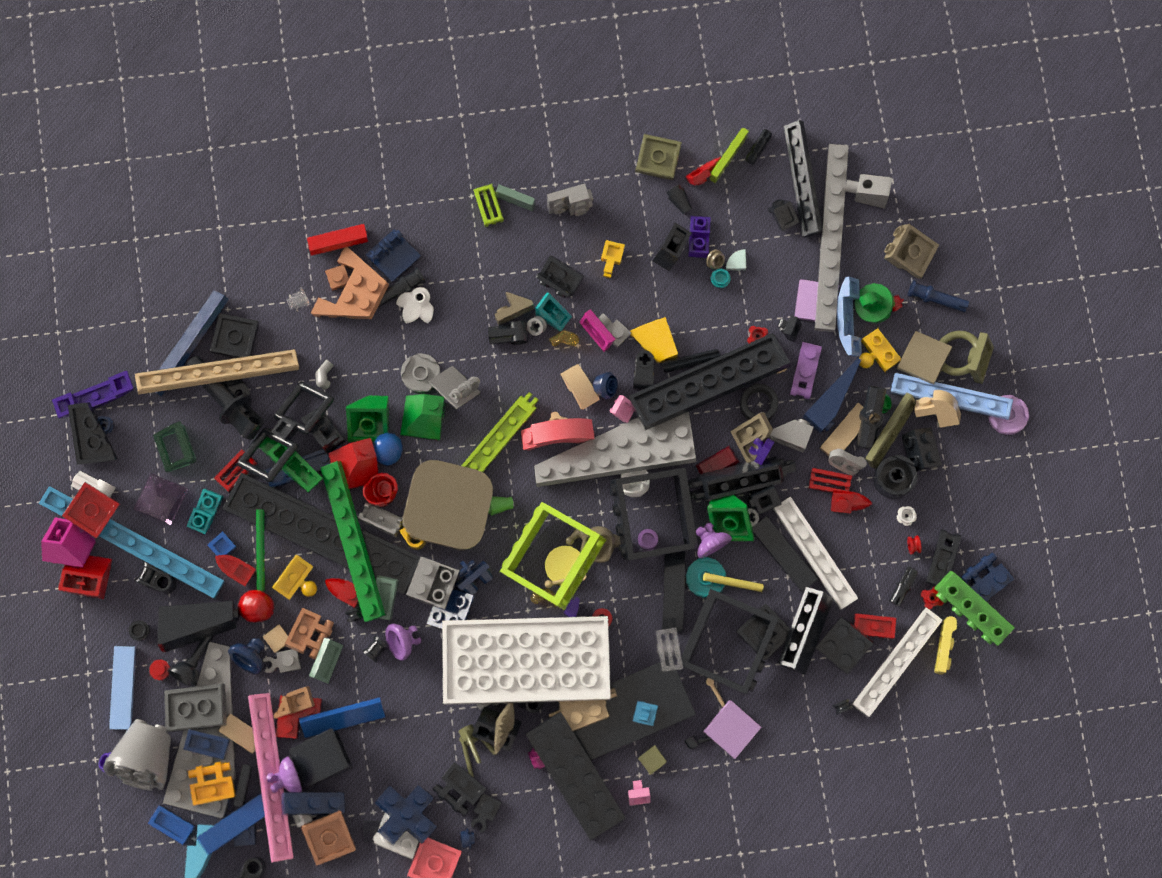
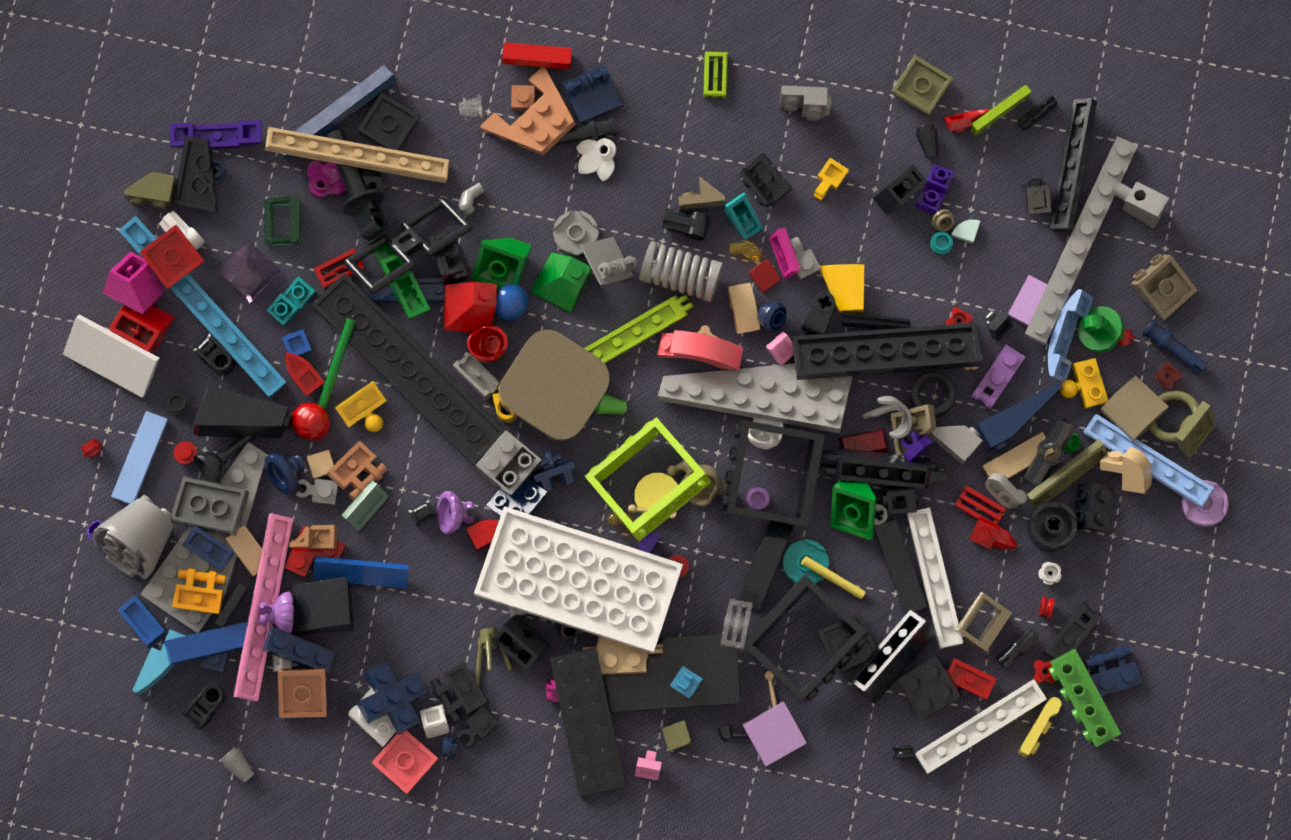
camera: 20 degrees right, 0 degrees up
(55, 459) = (152, 189): none -> olive slope
(68, 611) = (111, 356): none -> white tile
(79, 694) = (91, 448): none -> red plate
(197, 397) = (324, 175): none -> magenta plate
(343, 591) = (411, 439): red plate -> none
(352, 541) = (438, 388): green plate -> none
(354, 615) = (413, 468): black bush -> none
(387, 590) = (450, 460): sand green tile -> none
(432, 649) = (482, 533): none -> red brick
(447, 820) = (434, 721): none -> white slope
(504, 724) = (529, 640): dark tan hair -> none
(515, 197) = (747, 76): sand green tile -> none
(524, 376) = (681, 278): none -> light grey piece
(543, 325) = (722, 219): light grey bush -> none
(587, 354) = (764, 276): none -> red slope
(711, 541) = (825, 524): medium lavender hair -> none
(730, 422) = (893, 404): none -> light grey helmet
(877, 579) = (993, 628): none -> dark tan tile
(937, 316) = (1173, 375): none -> clear red plate

